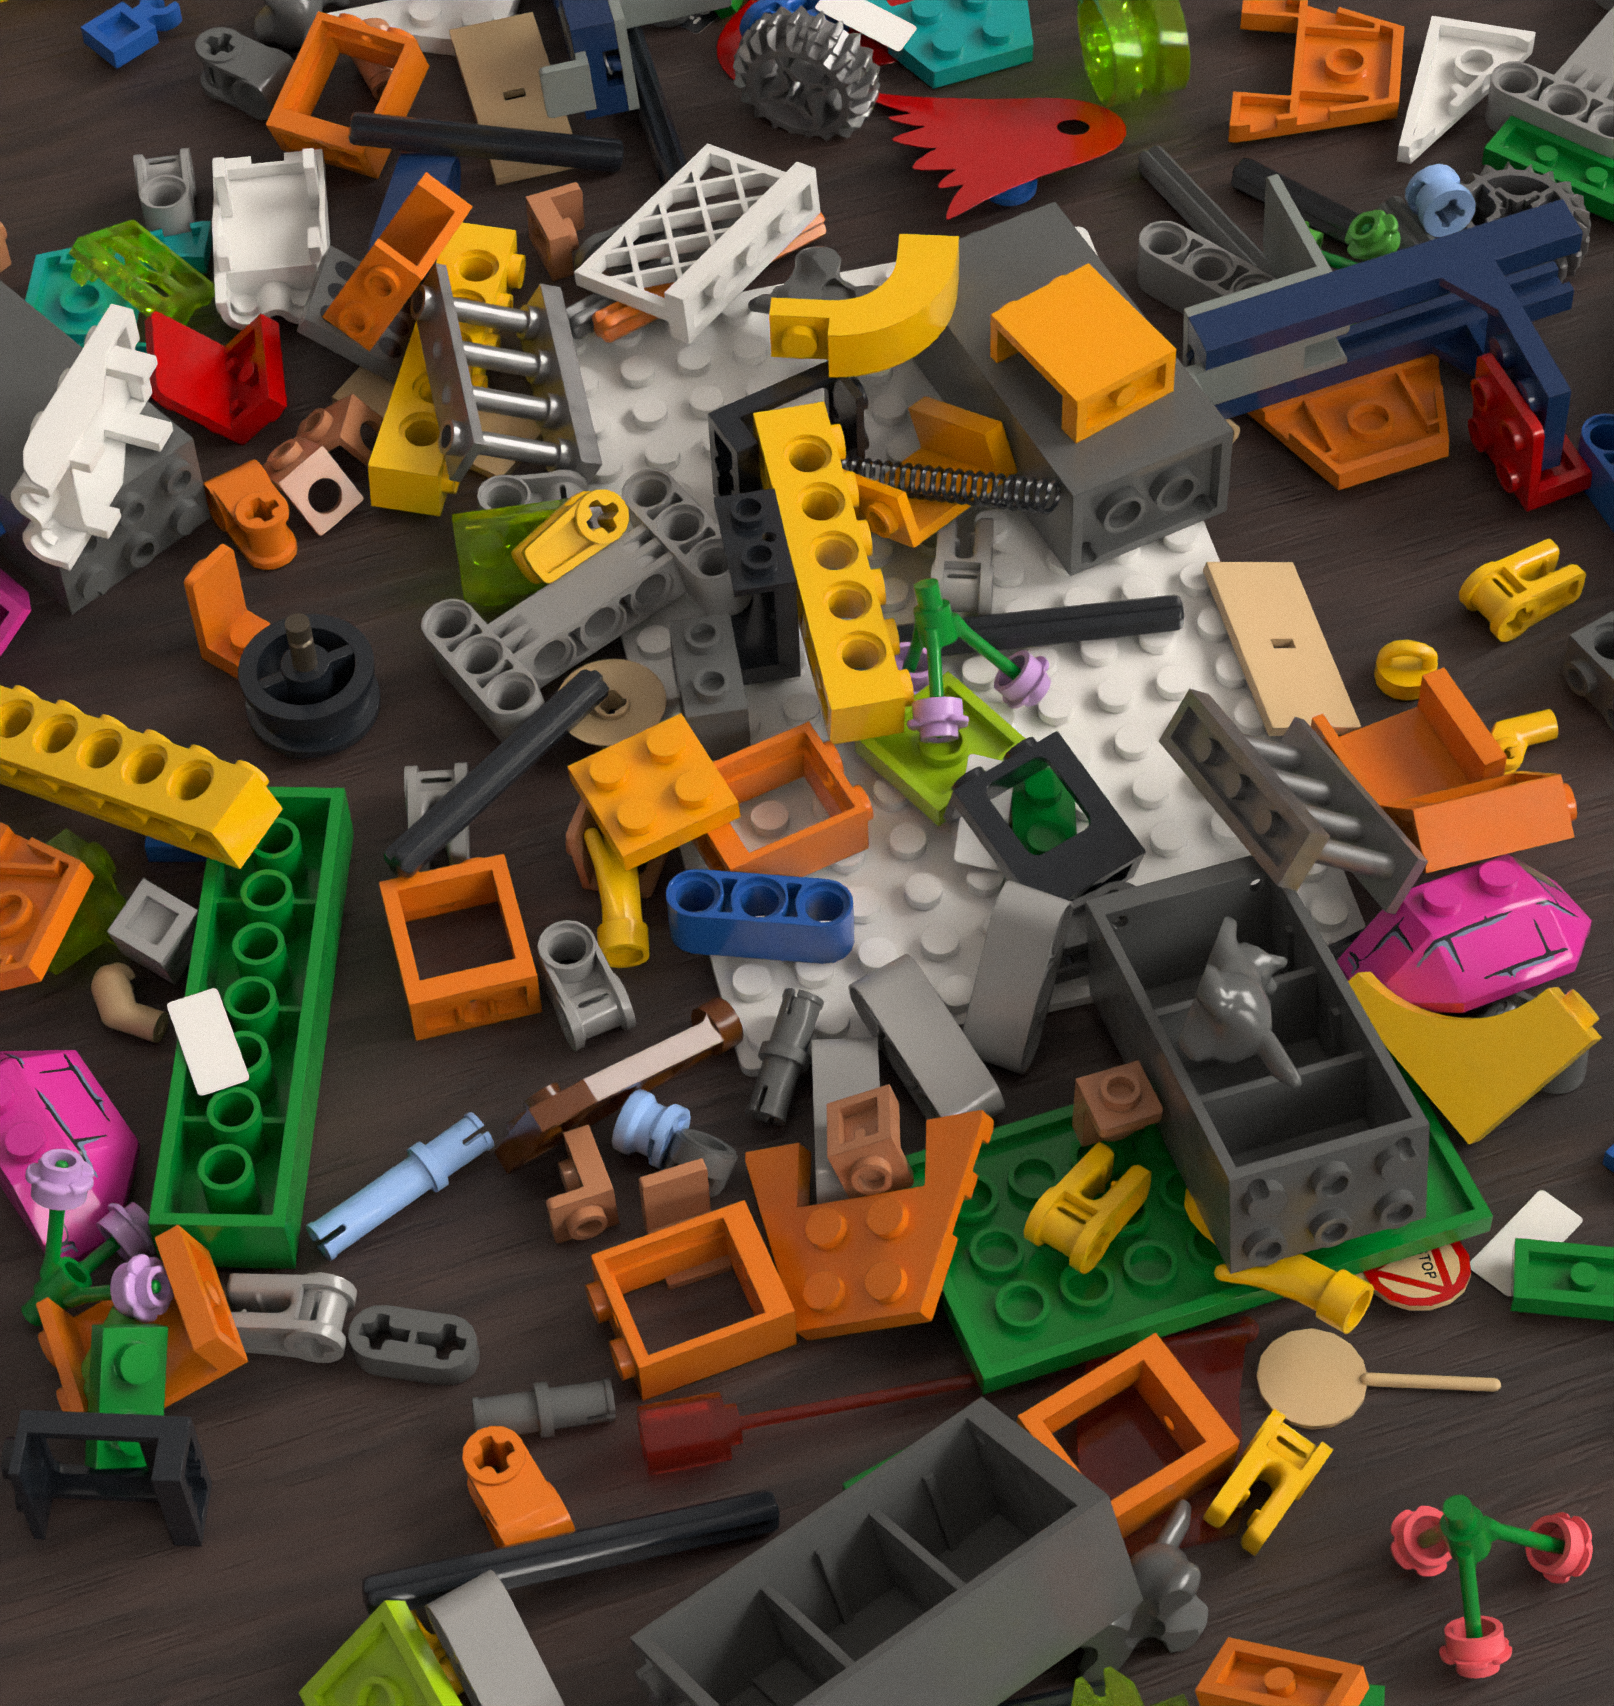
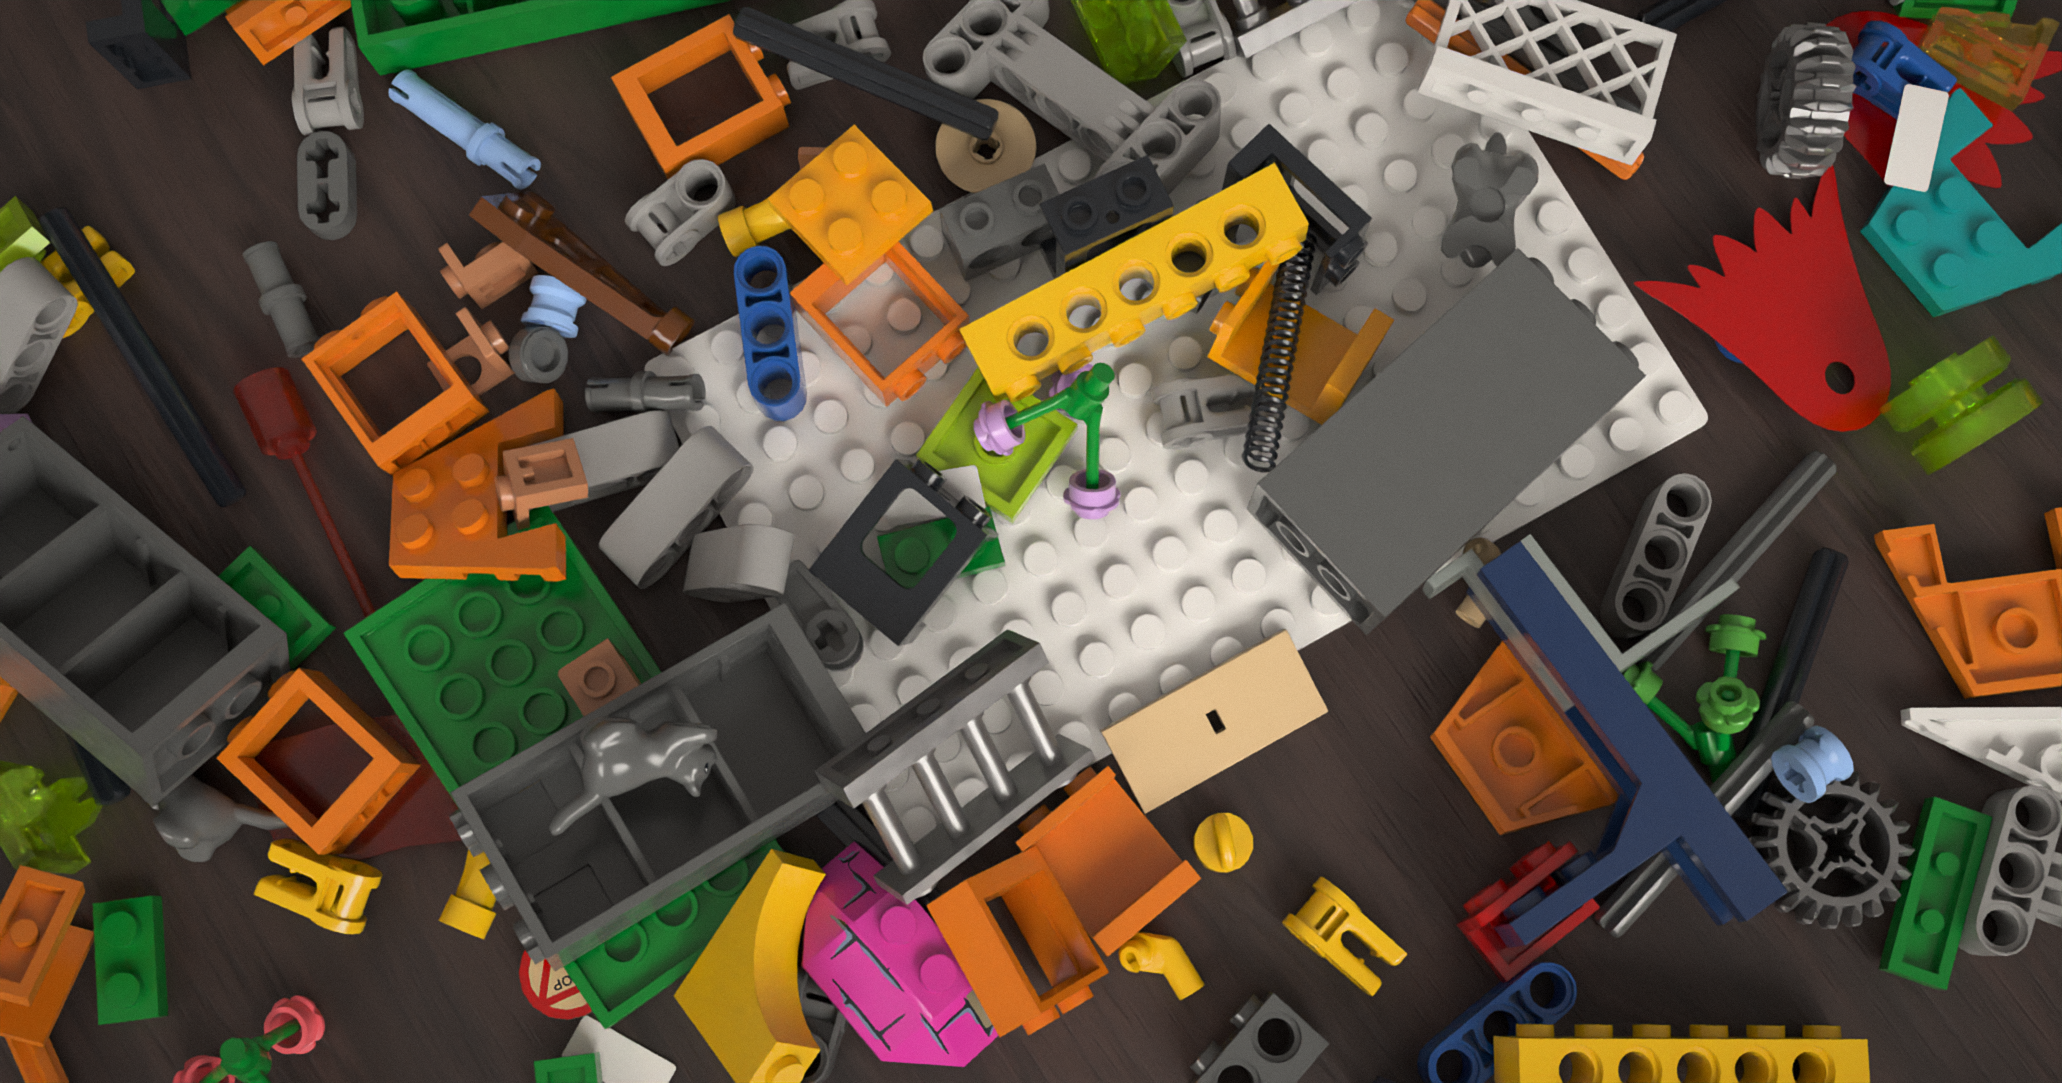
camera: 75 degrees right, 25 degrees up
(518, 1501) = (191, 305): orange piece -> none
(567, 540) = (1131, 52): yellow piece -> none
(881, 326) = (1418, 262): yellow arch -> none
(1068, 624) = (1166, 495): black axle -> none
(1075, 1222) = (488, 675): yellow piece -> none
(1087, 348) = (1425, 445): light orange panel -> none
(1324, 1380) = (420, 909): tan piece -> none

